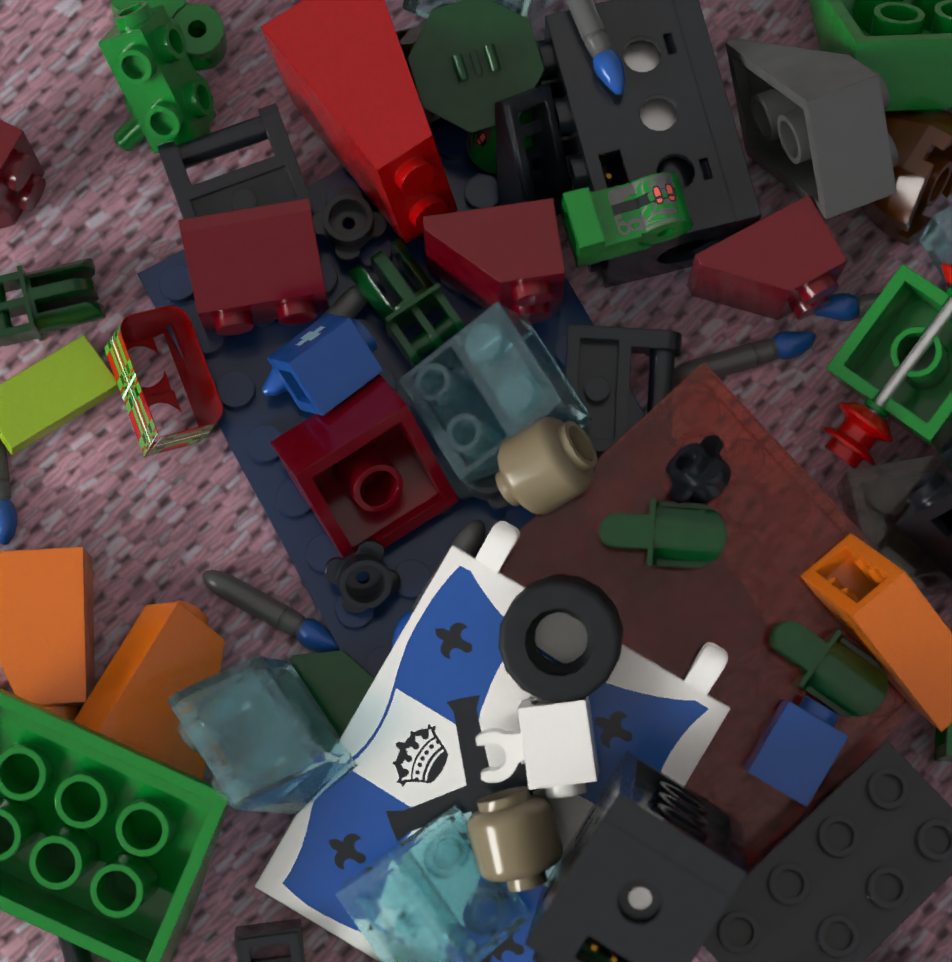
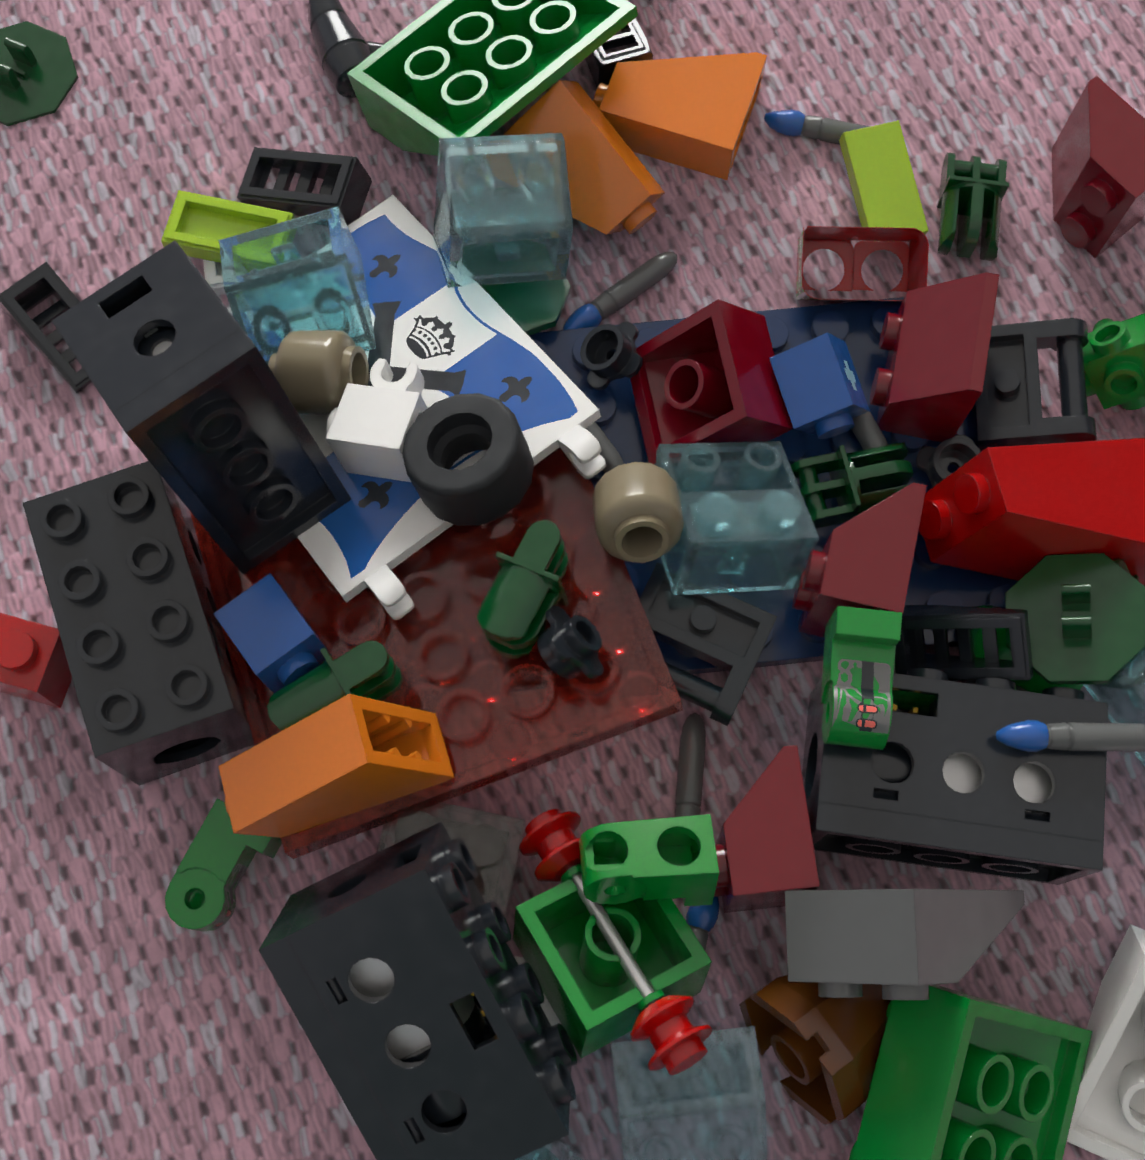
camera: 110 degrees right, 5 degrees down
(846, 340) = (650, 860): none -> green leg

